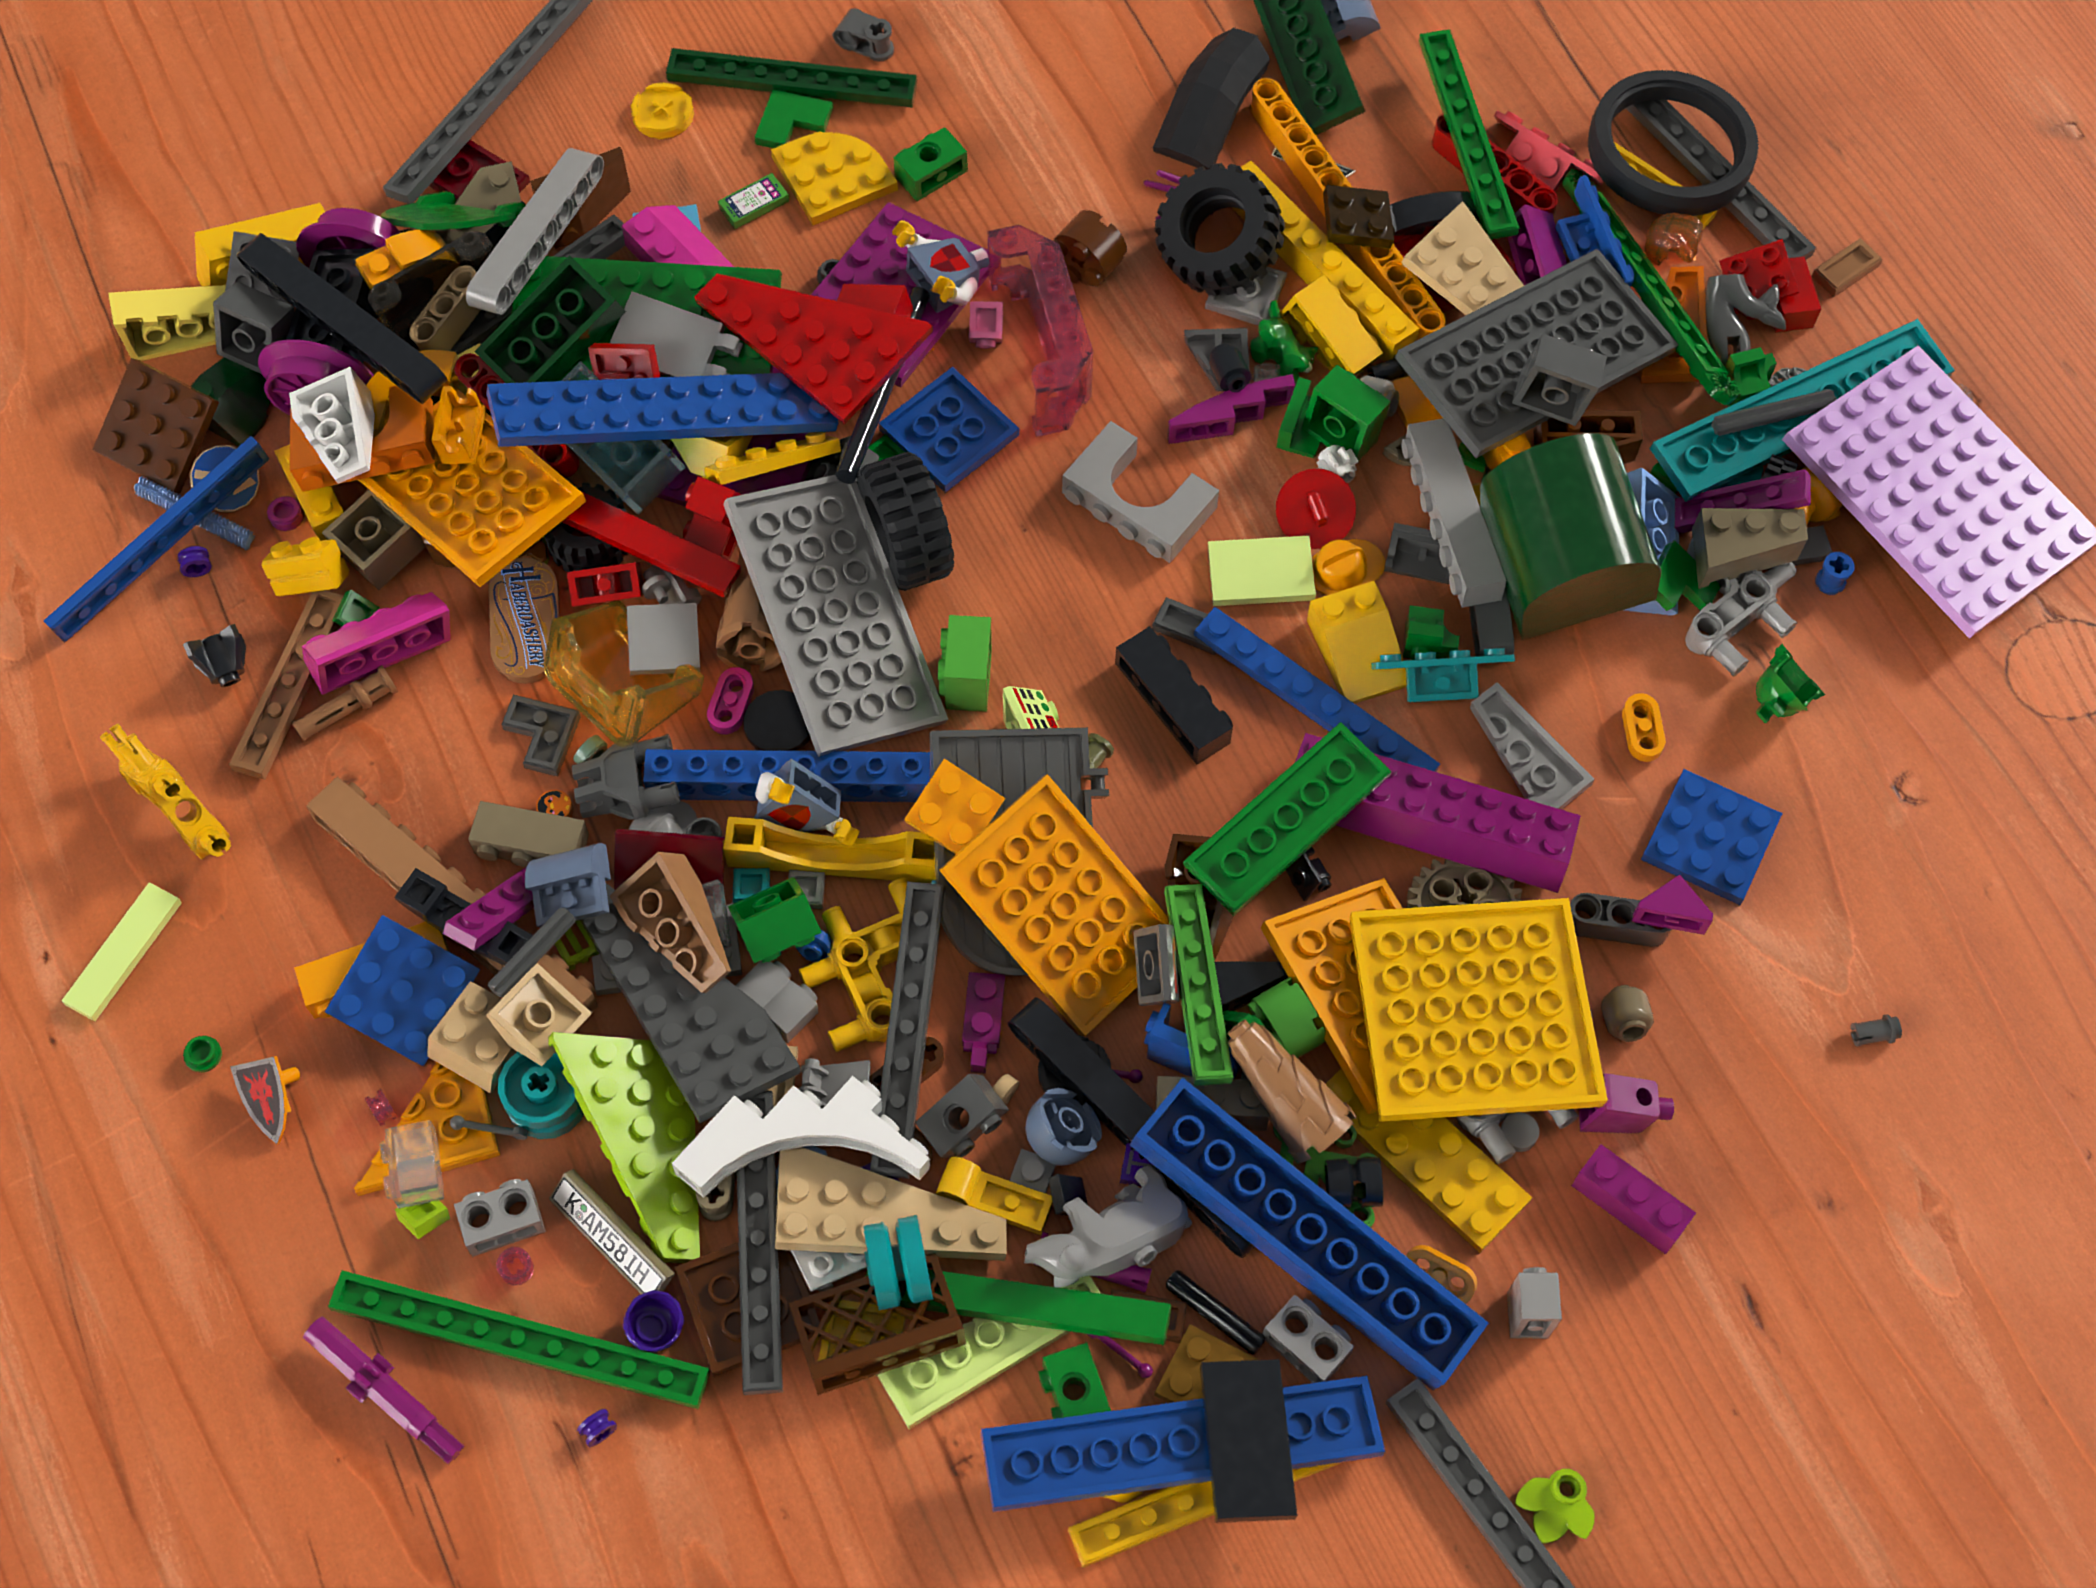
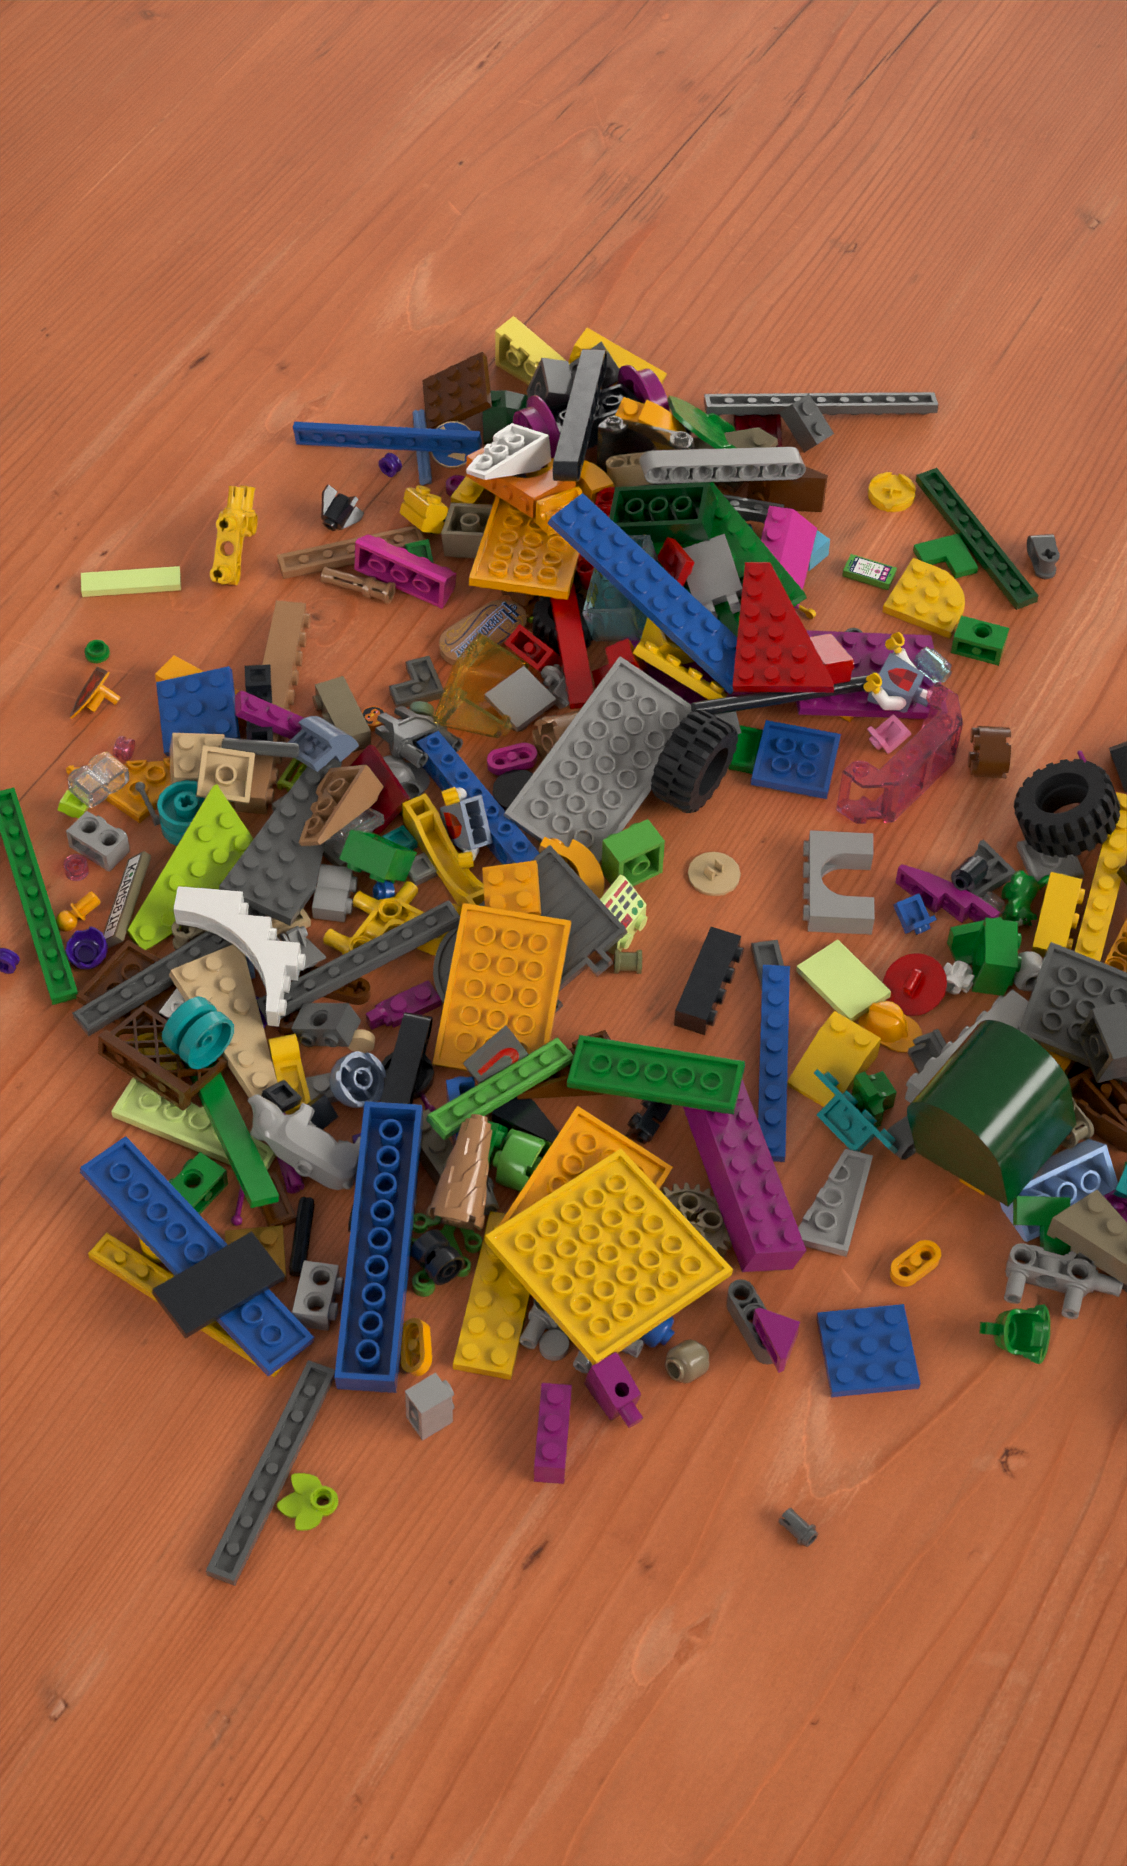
camera: 55 degrees right, 10 degrees down
(512, 120) = (806, 423): none -> dark grey brick
(585, 1318) = (68, 920): none -> light orange axle
(938, 716) = (581, 862): none -> light orange arch
(941, 223) = (933, 665): none -> clear light blue brick
(1027, 1223) = (282, 1095): none -> black tile
(1032, 602) = (714, 873): none -> tan piece
(1232, 453) = (913, 915): none -> blue bracket

